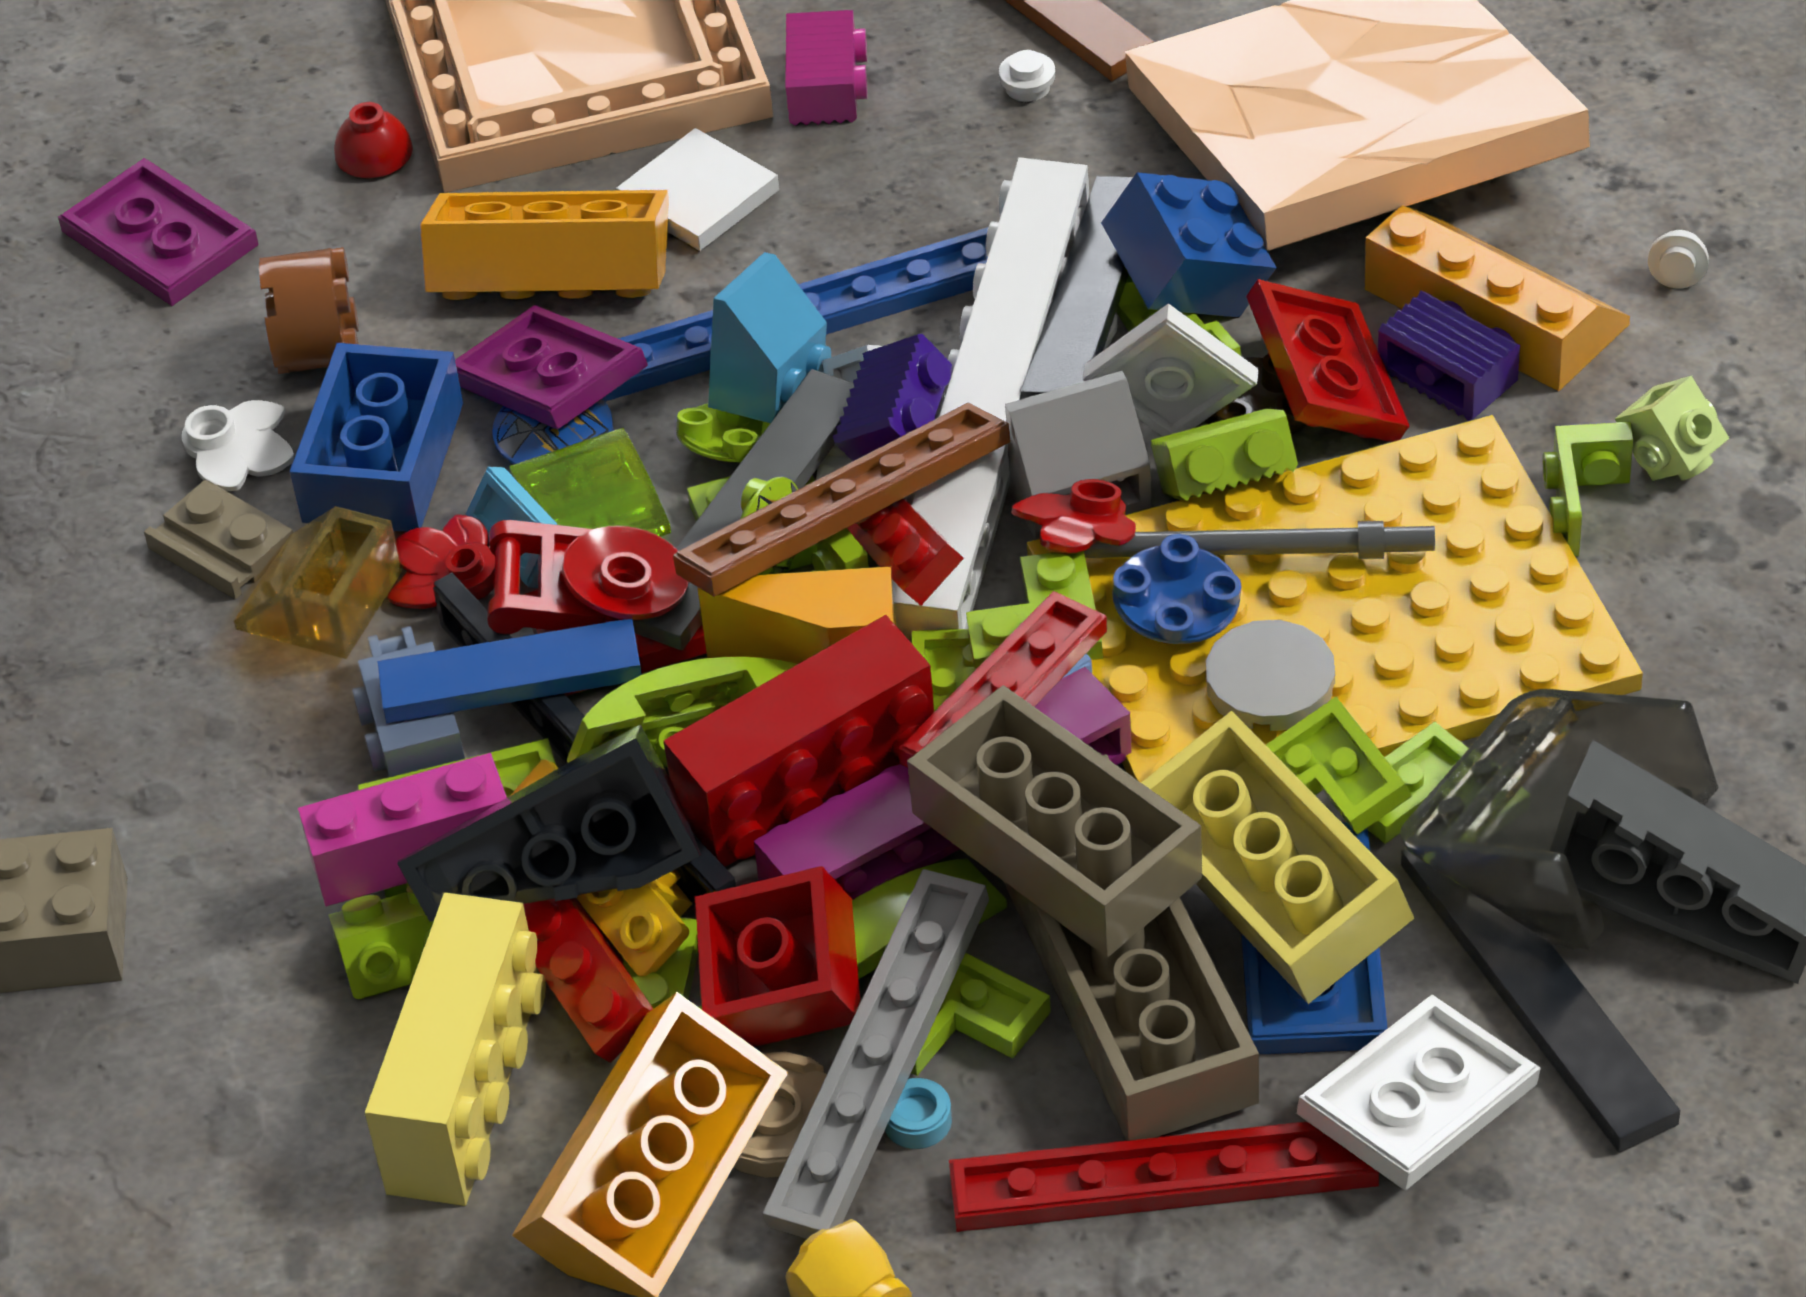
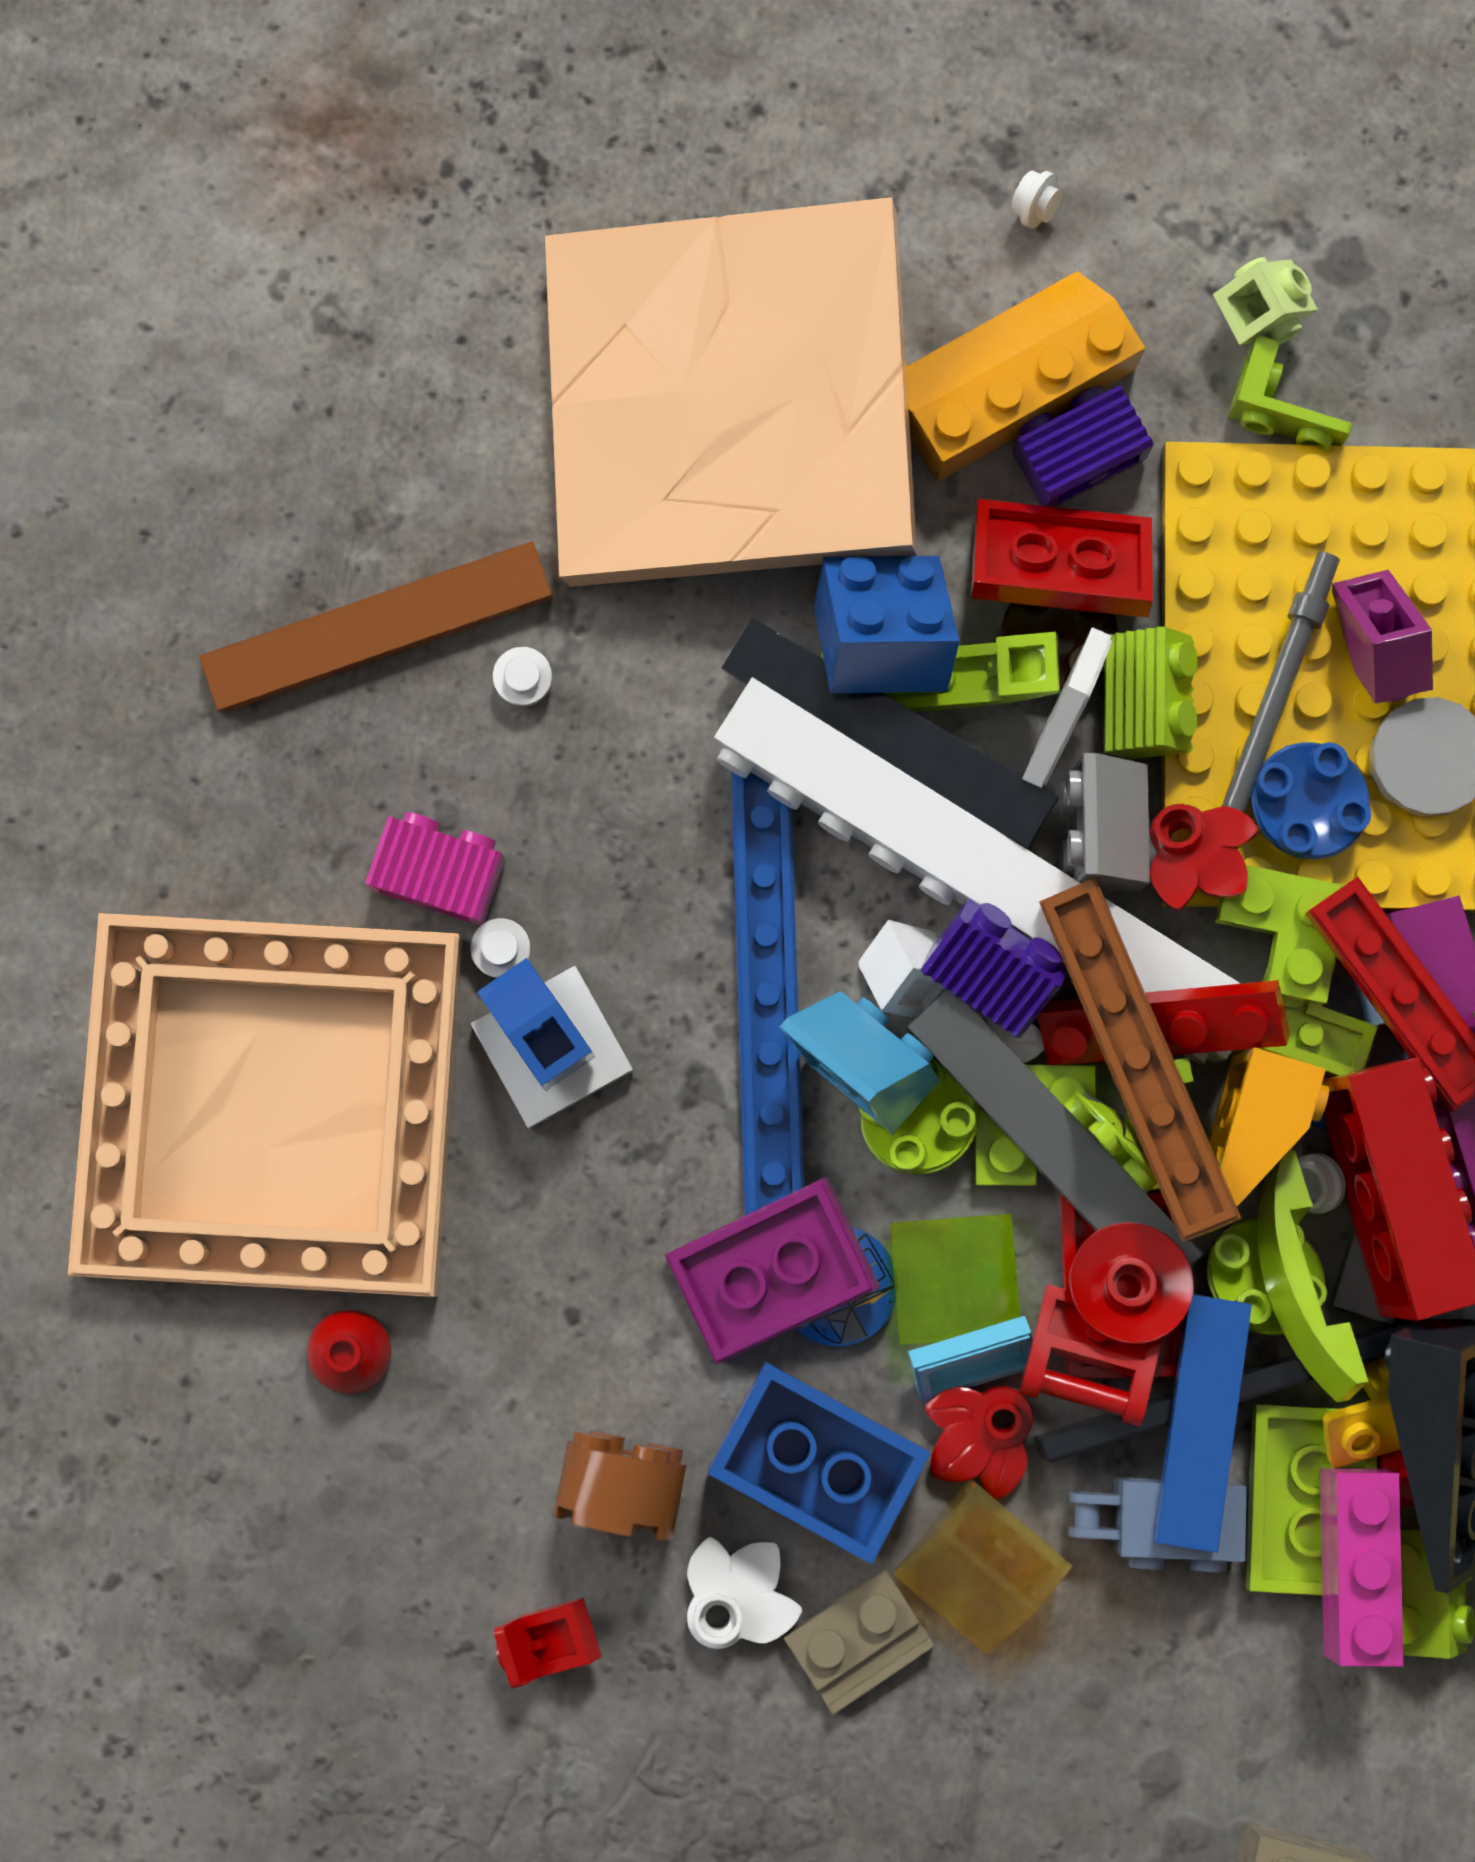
camera: 80 degrees left, 35 degrees up
(149, 322) = (546, 1642): none -> red bracket
(158, 231) = (383, 1603): magenta tile -> none
(545, 243) = (591, 1219): light orange slope -> none
(698, 146) = (536, 1024): none -> blue slope
(772, 132) = (499, 946): none -> white plate
(1367, 591) = (1384, 636): none -> magenta slope

